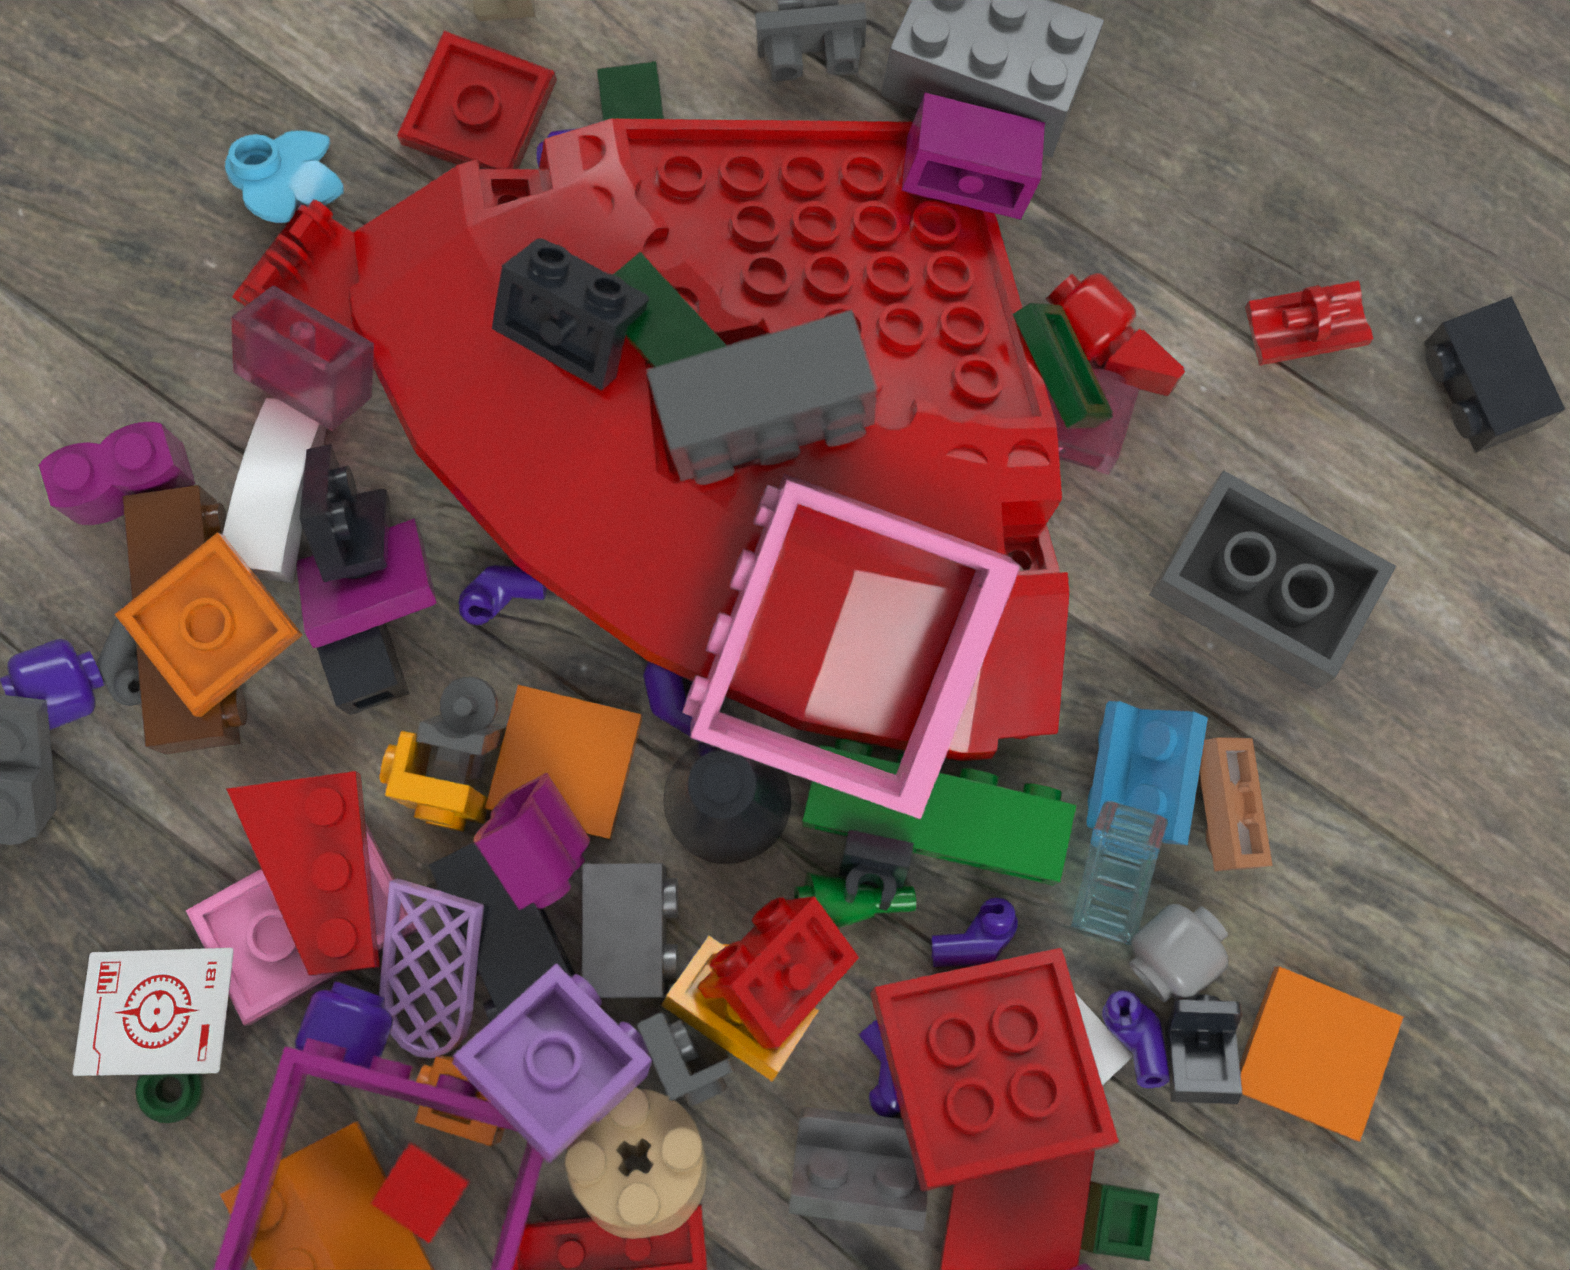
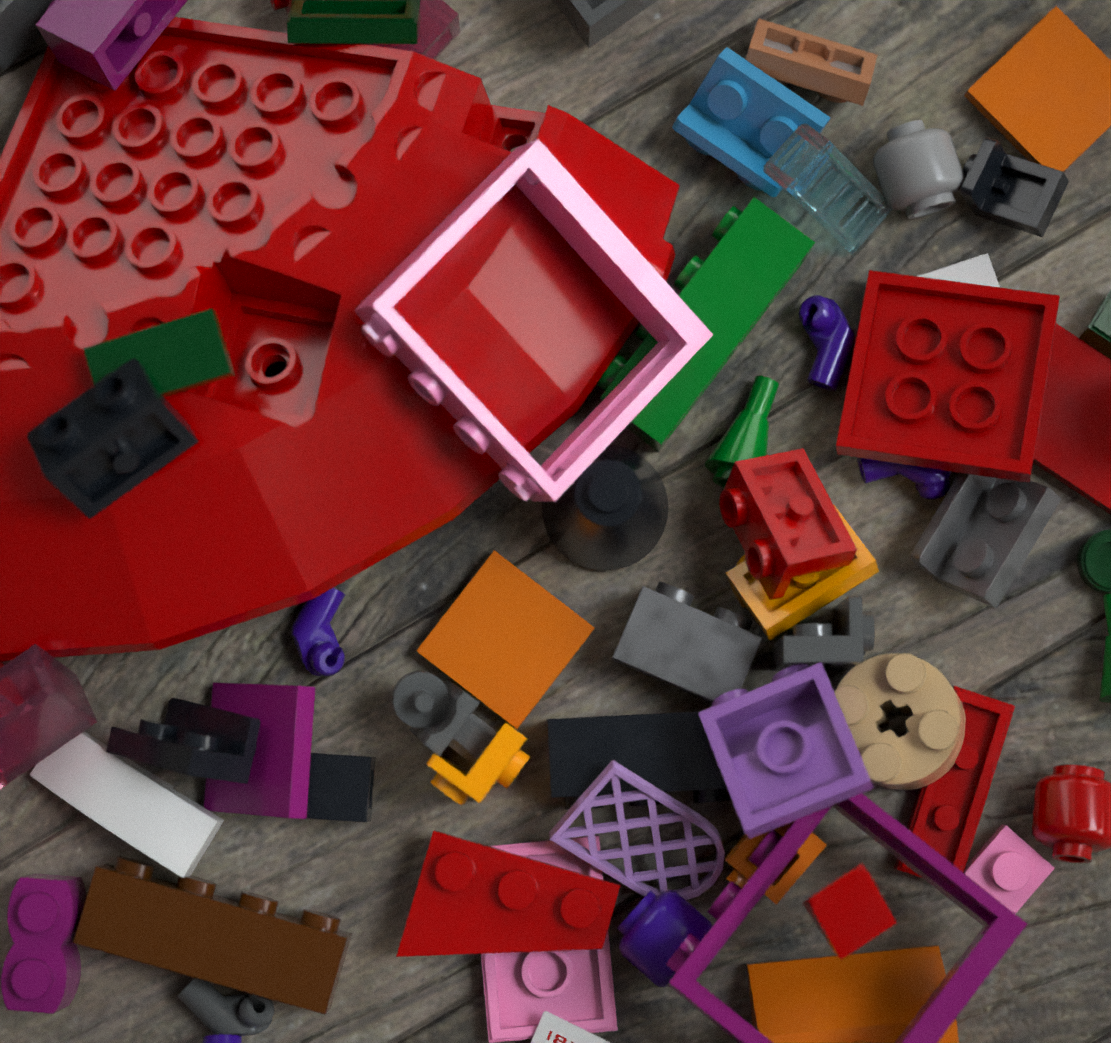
camera: 70 degrees left, 5 degrees up
(208, 625) = (238, 907): orange tile -> none
(533, 843) = (576, 690): magenta brick -> none
(667, 697) = (494, 520): dark purple arm -> none
(766, 398) = (287, 291): dark grey brick -> none
(875, 860) = (723, 396): black tile -> none
(1141, 1034) = (973, 236): dark purple arm -> none

